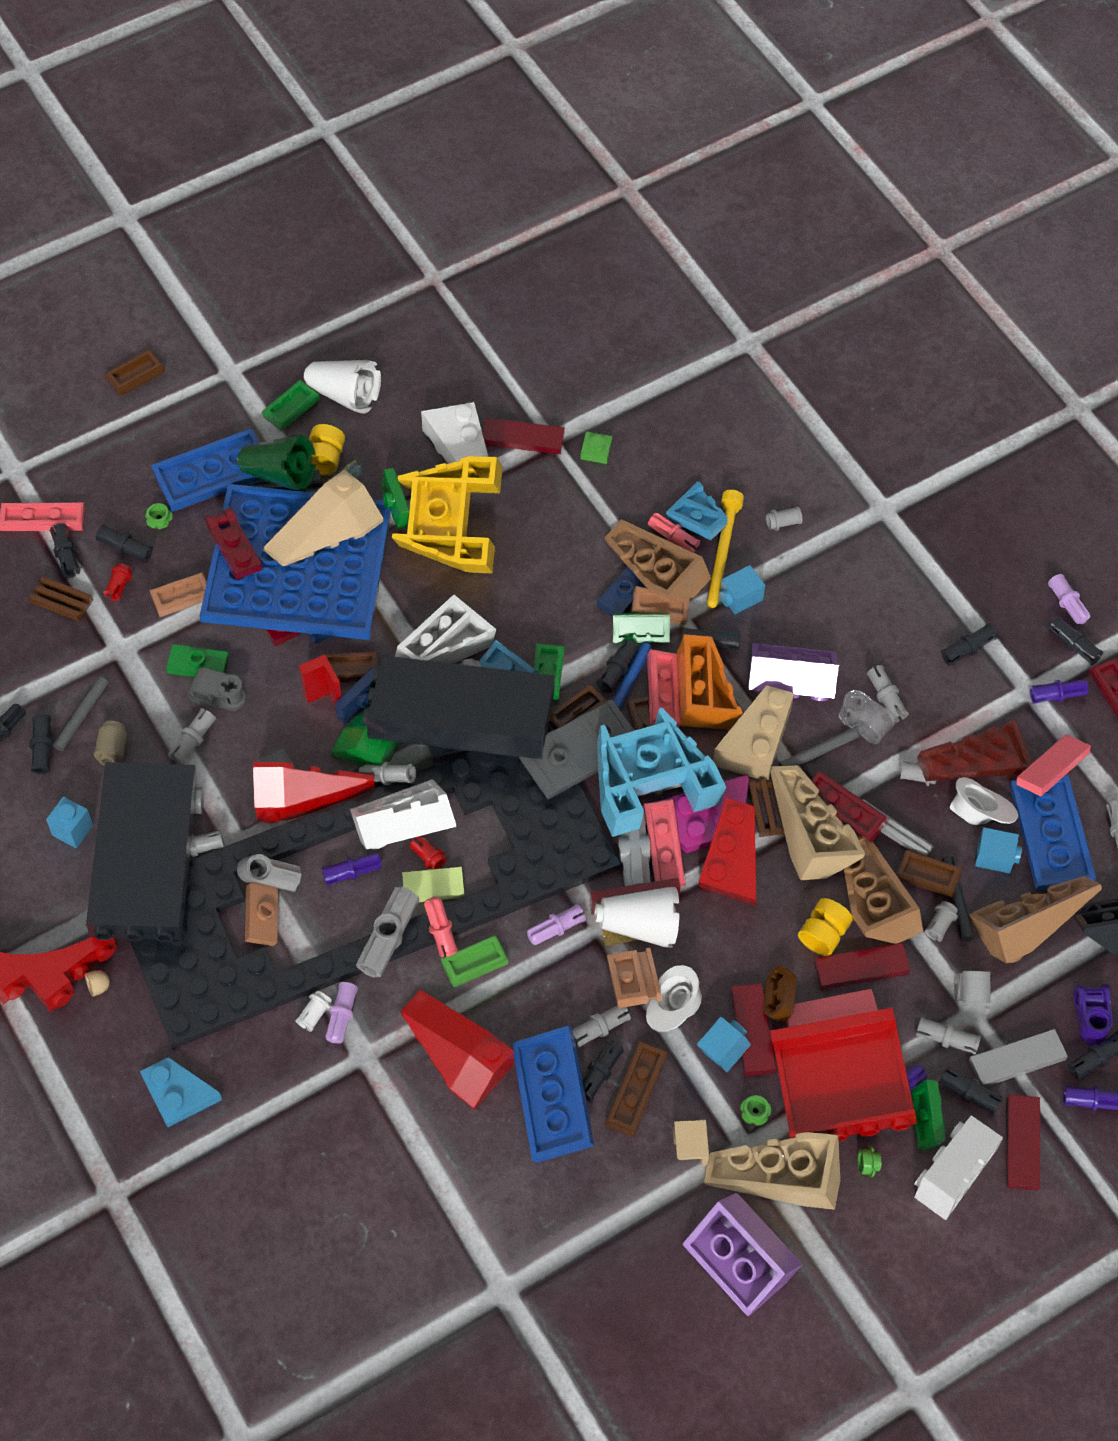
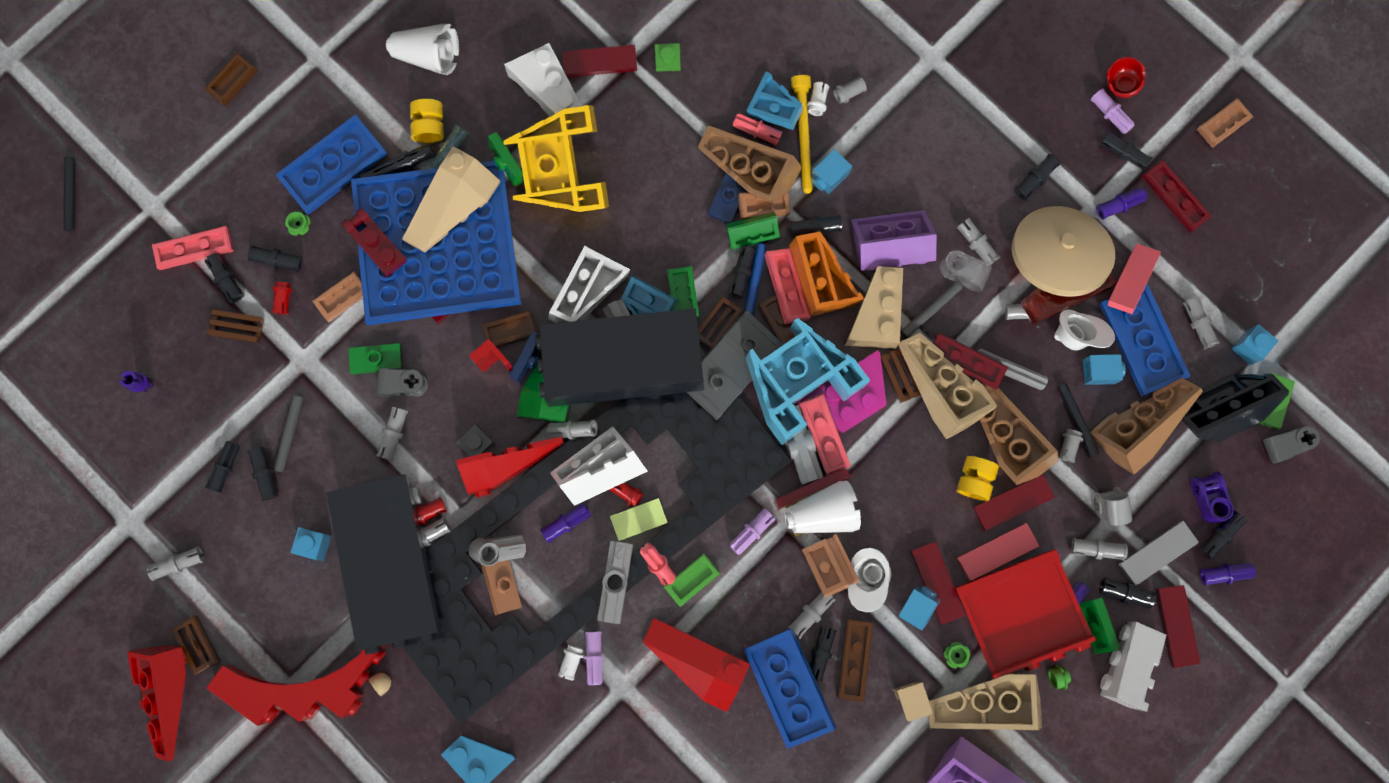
camera: 15 degrees left, 20 degrees up
(110, 742) = (323, 459): dark tan brick -> none
(208, 821) = (430, 510): none -> red pin
(280, 461) = (392, 149): dark green cone -> none
(290, 405) = (383, 80): green plate -> none
(732, 854) = (886, 433): red wedge -> none
(744, 523) = (817, 103): none -> white pin
(780, 994) = (954, 549): reddish brown beam -> none
(929, 873) = (1051, 404): reddish brown tile -> none
(978, 719) = (1063, 251): none -> tan dish
(1090, 567) = (1126, 77): none -> red hair

